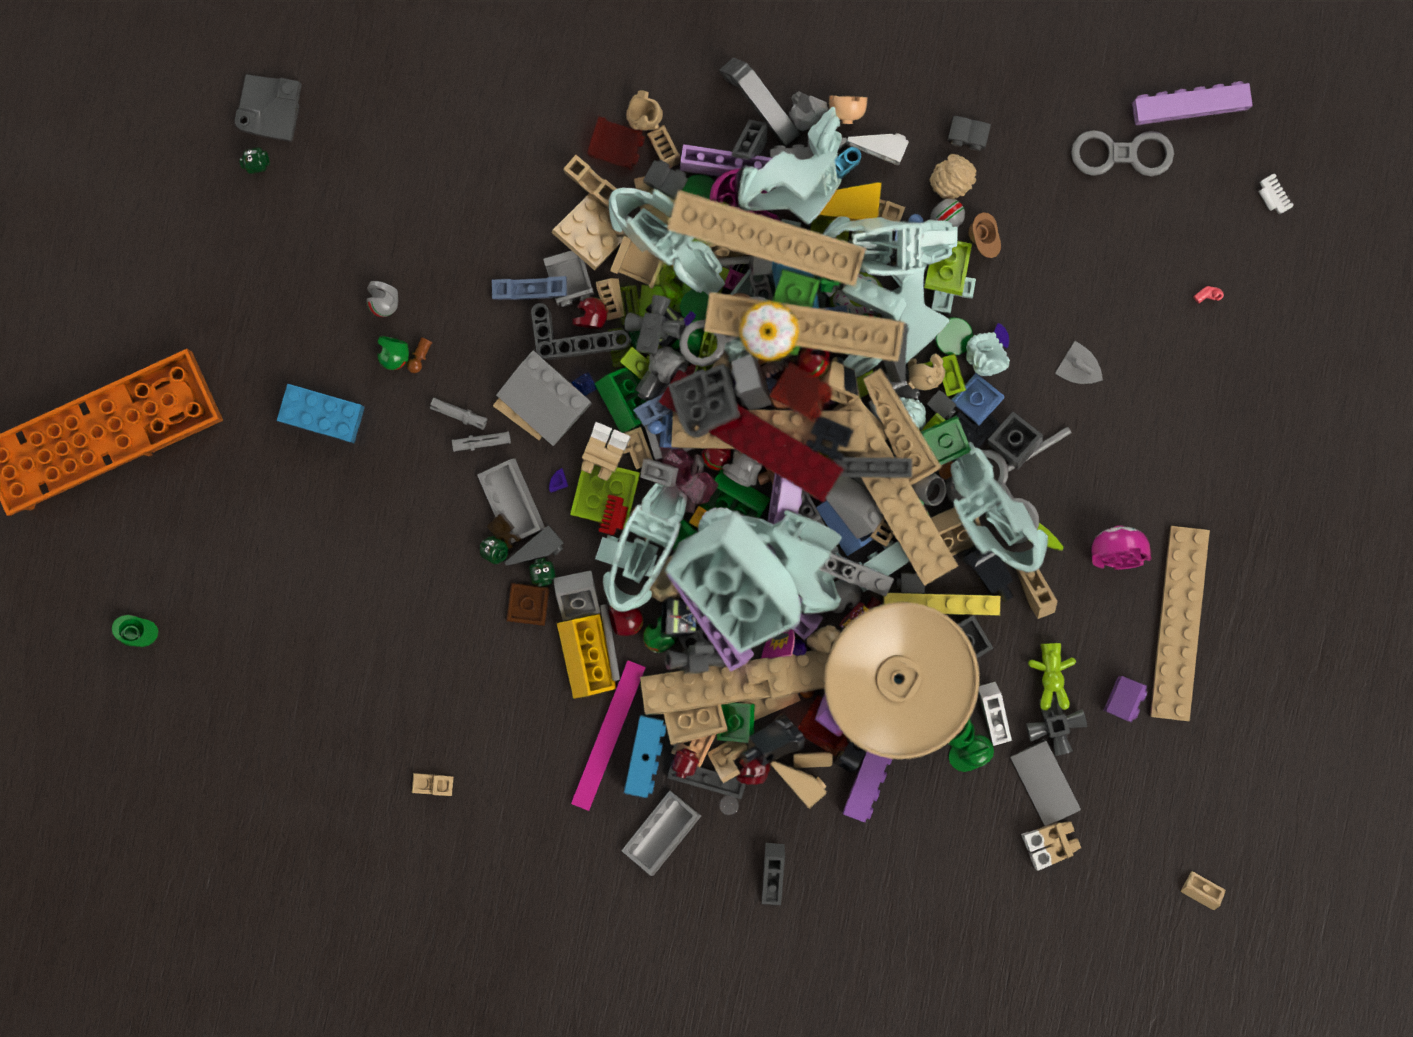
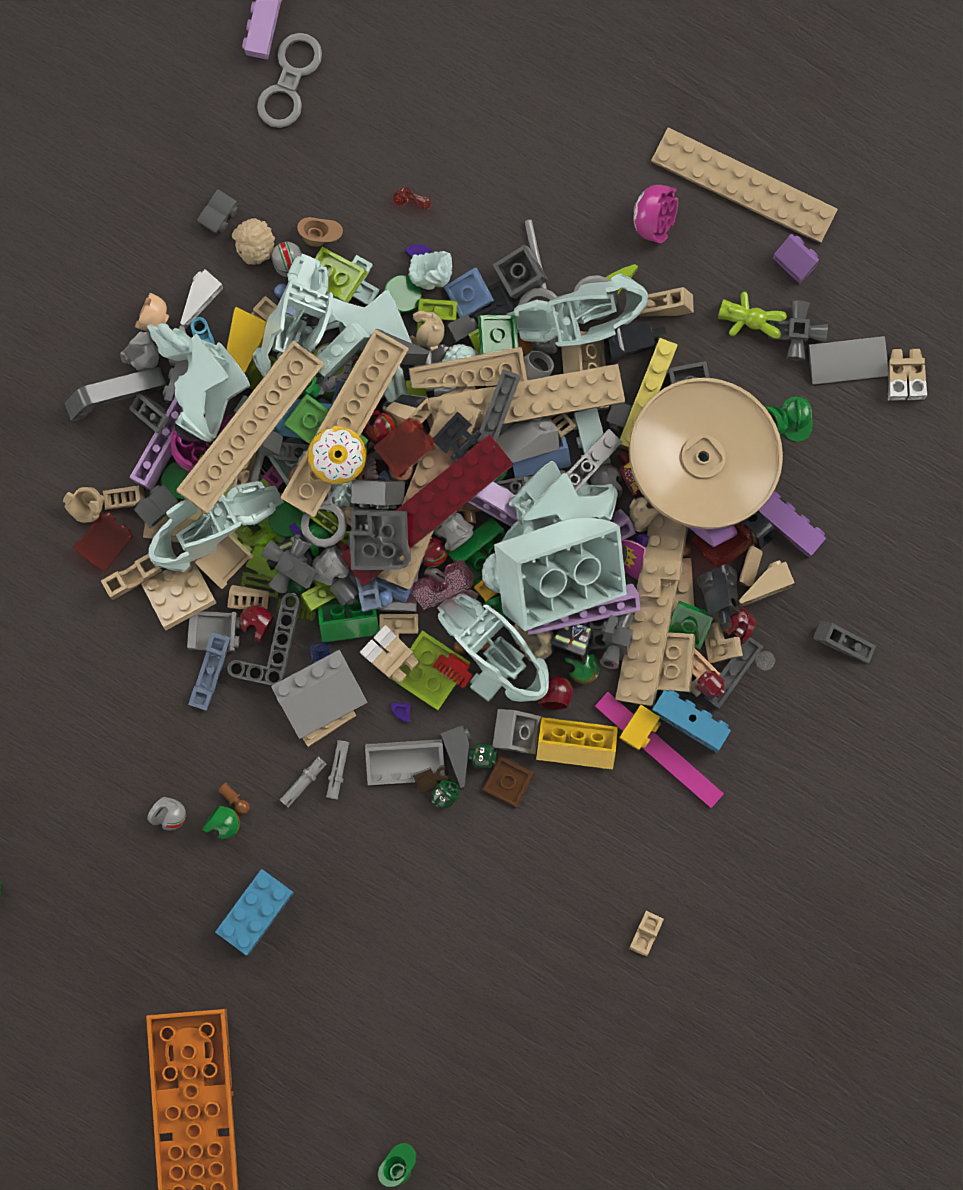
camera: 70 degrees left, 5 degrees down
(610, 642) = (572, 717): light grey bar -> none
(620, 710) = (640, 727): none -> yellow brick
(659, 472) = (429, 610): light grey plate -> none
(661, 833) = (769, 733): light grey slope -> none
(994, 713) = (767, 383): white slope -> none
(1047, 301) = (401, 198): none -> clear red piece
(1079, 366) = (472, 190): light grey shield -> none
(1210, 293) = (448, 48): coral arm -> none

